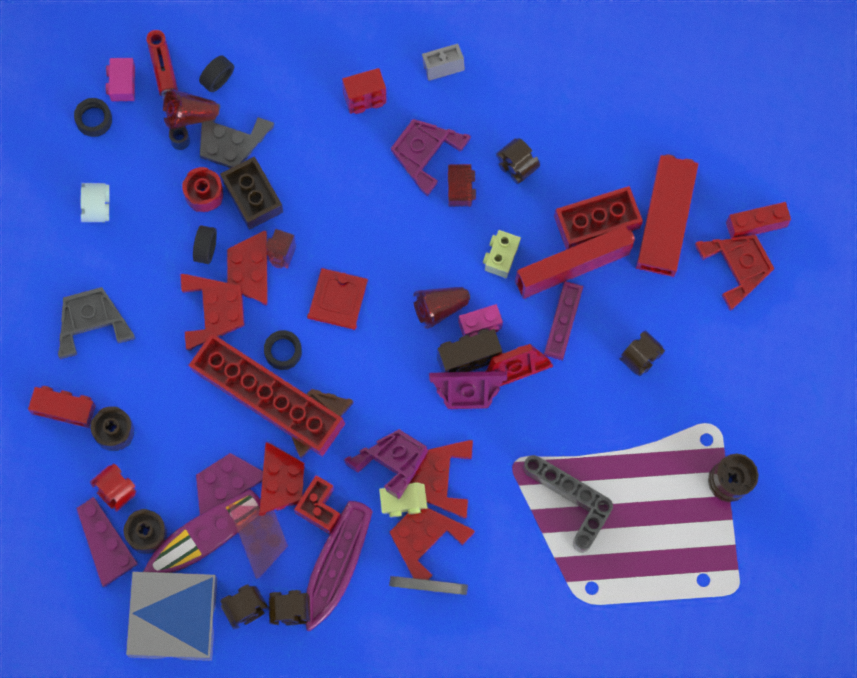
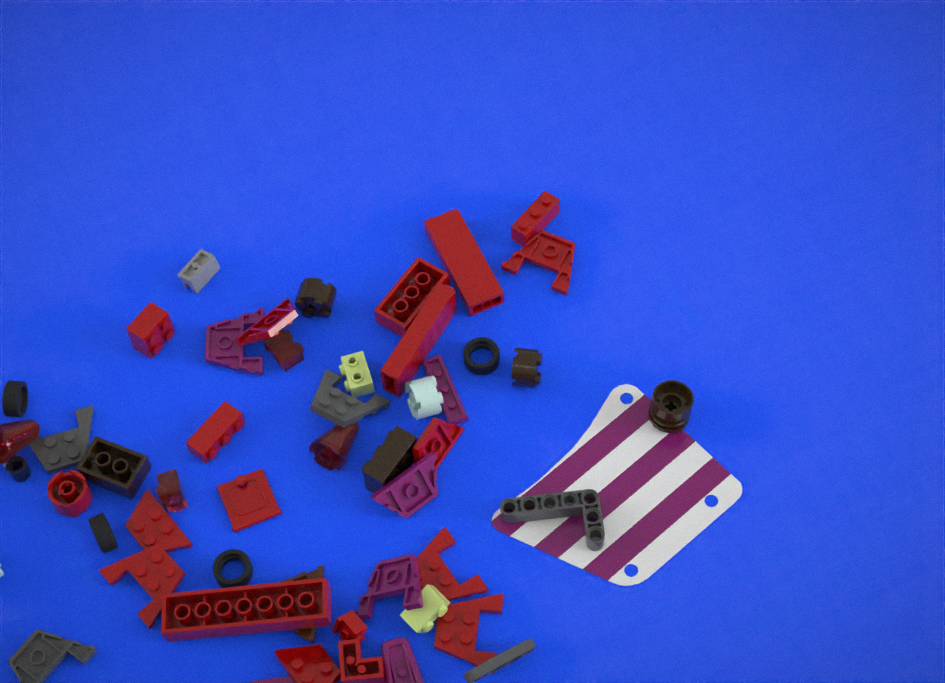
camera: 30 degrees left, 15 degrees down
(335, 469) = (350, 627): none -> red brick
(353, 221) = (215, 432): none -> red brick
(464, 157) = (269, 324): none -> wing
(465, 274) = (341, 407): none -> dark grey wing
(480, 319) = (377, 432): dark pink brick -> none
(538, 316) = (423, 397): none -> light aqua brick
(615, 298) = (481, 343): none -> black tyre

